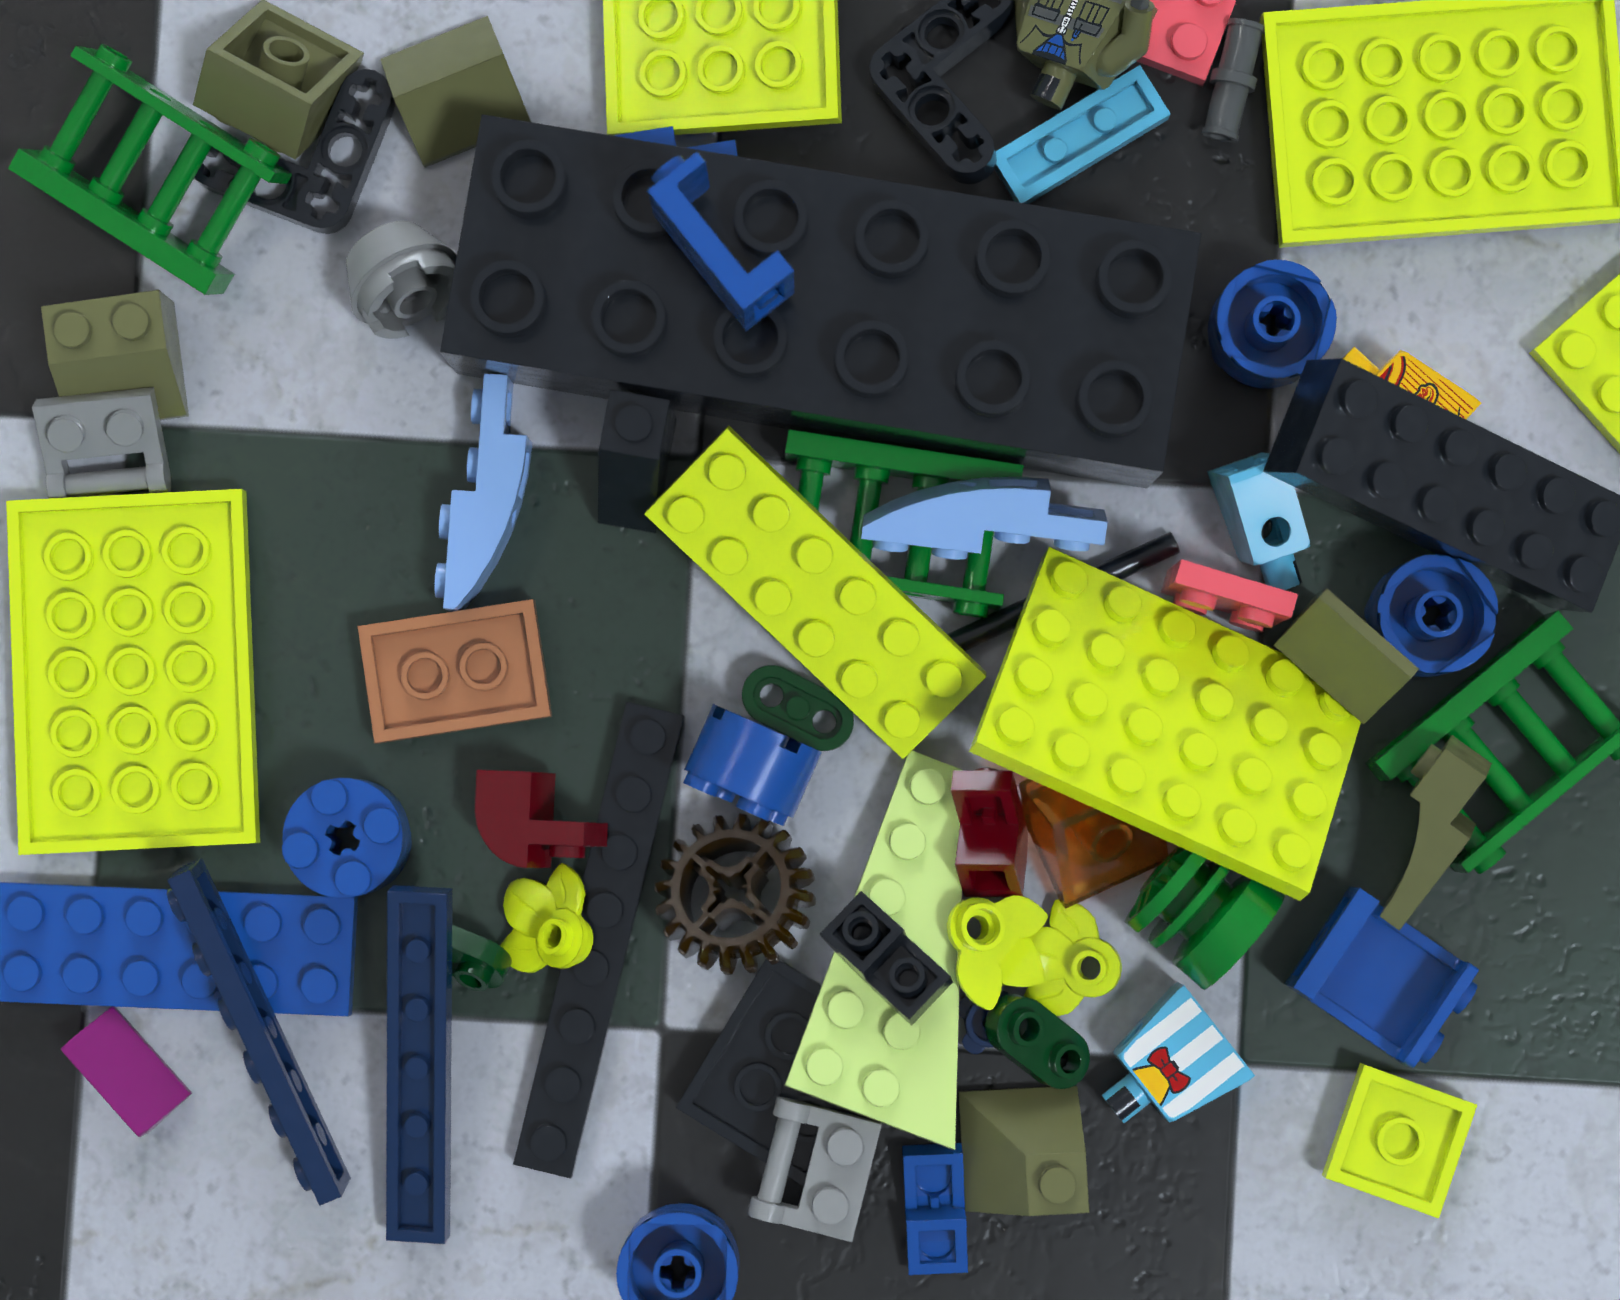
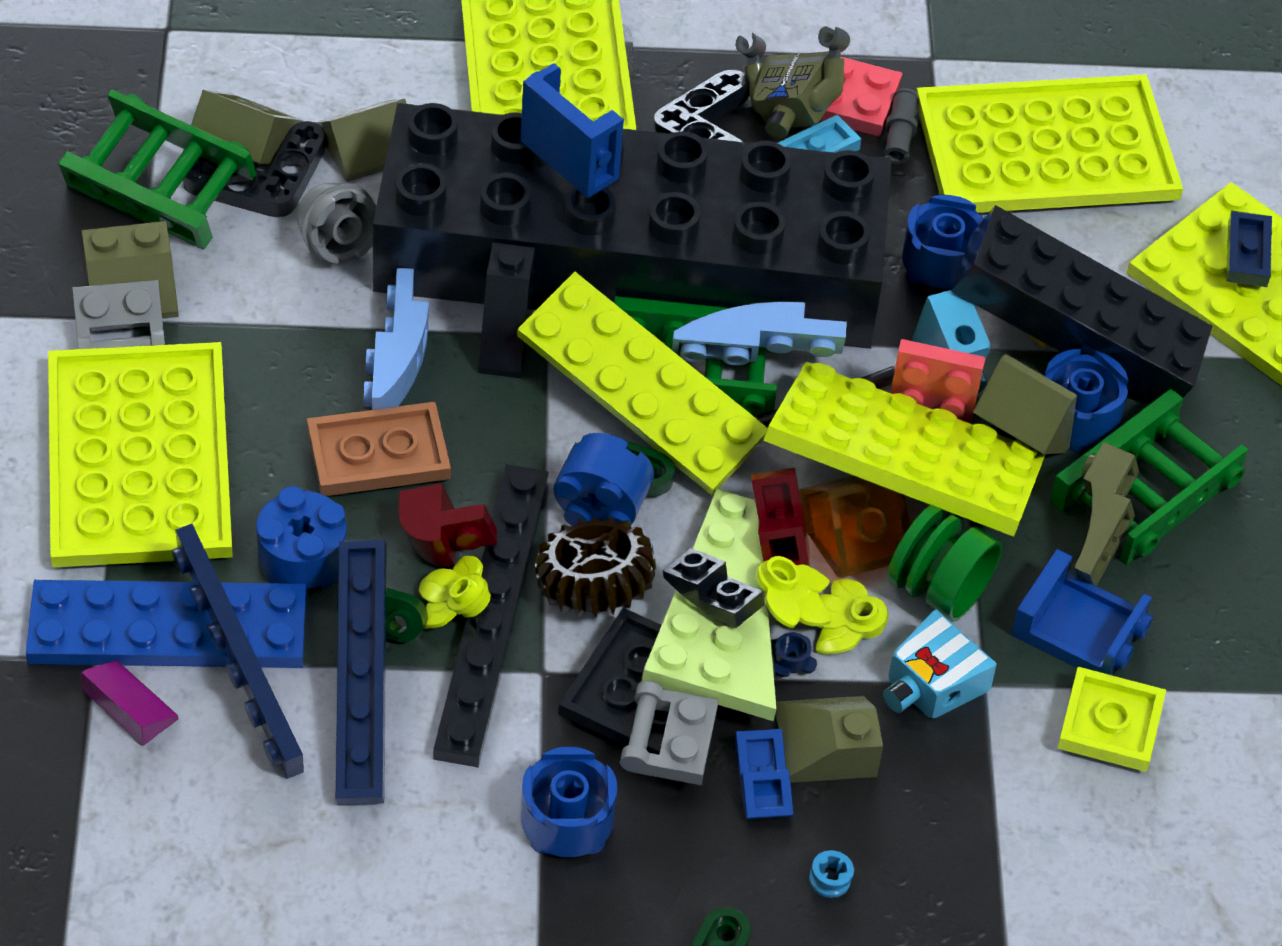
camera: 10 degrees left, 35 degrees down
(1042, 1043) = (831, 657): dark green plate -> none

